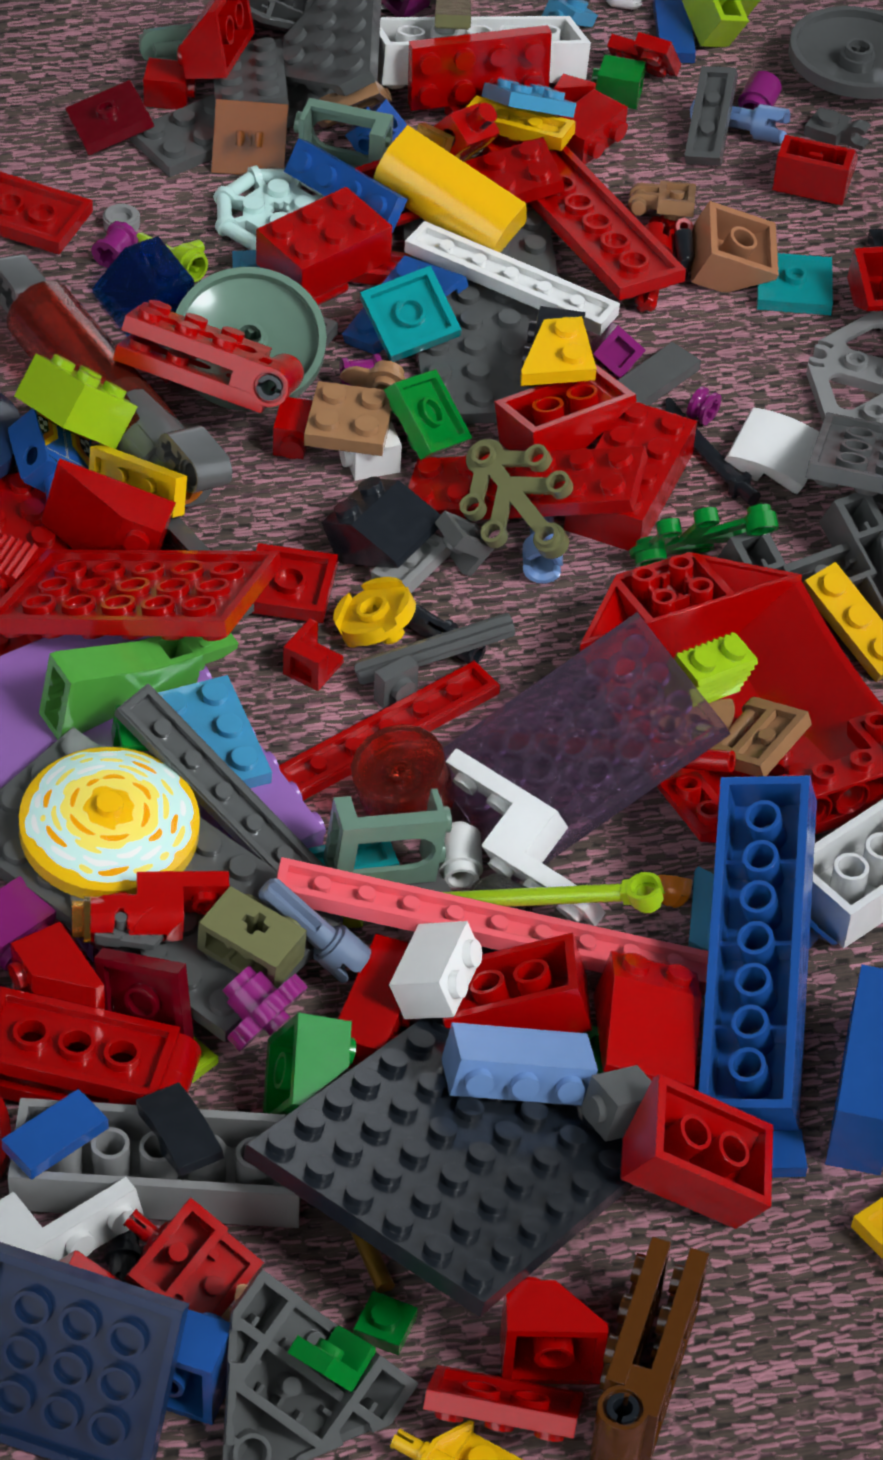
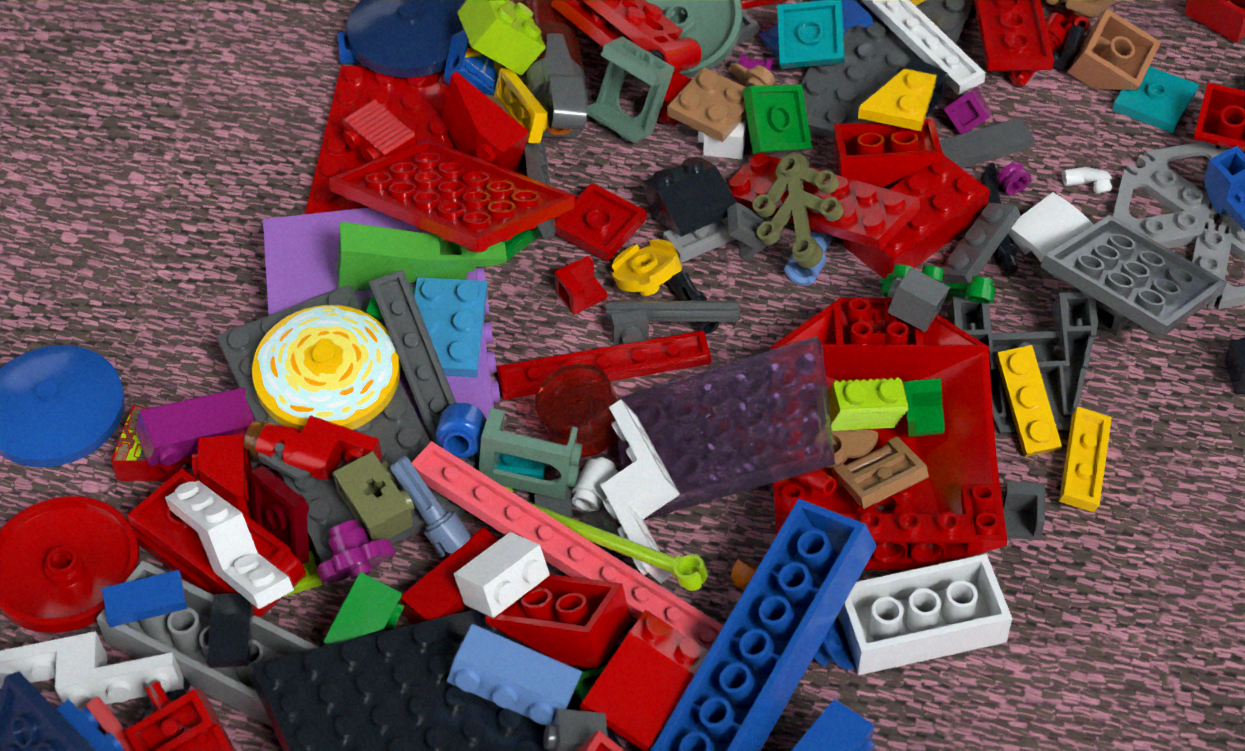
camera: 30 degrees right, 5 degrees up
(127, 1036) = (228, 544): none -> white bracket
(263, 393) = (629, 57): none -> sand green panel
(305, 834) = (461, 429): none -> blue head
(707, 546) = (917, 299): none -> dark grey brick
(711, 475) = (980, 243): none -> dark grey plate
(771, 668) = (924, 407): none -> green panel
(774, 381) = (1086, 175): none -> white arm

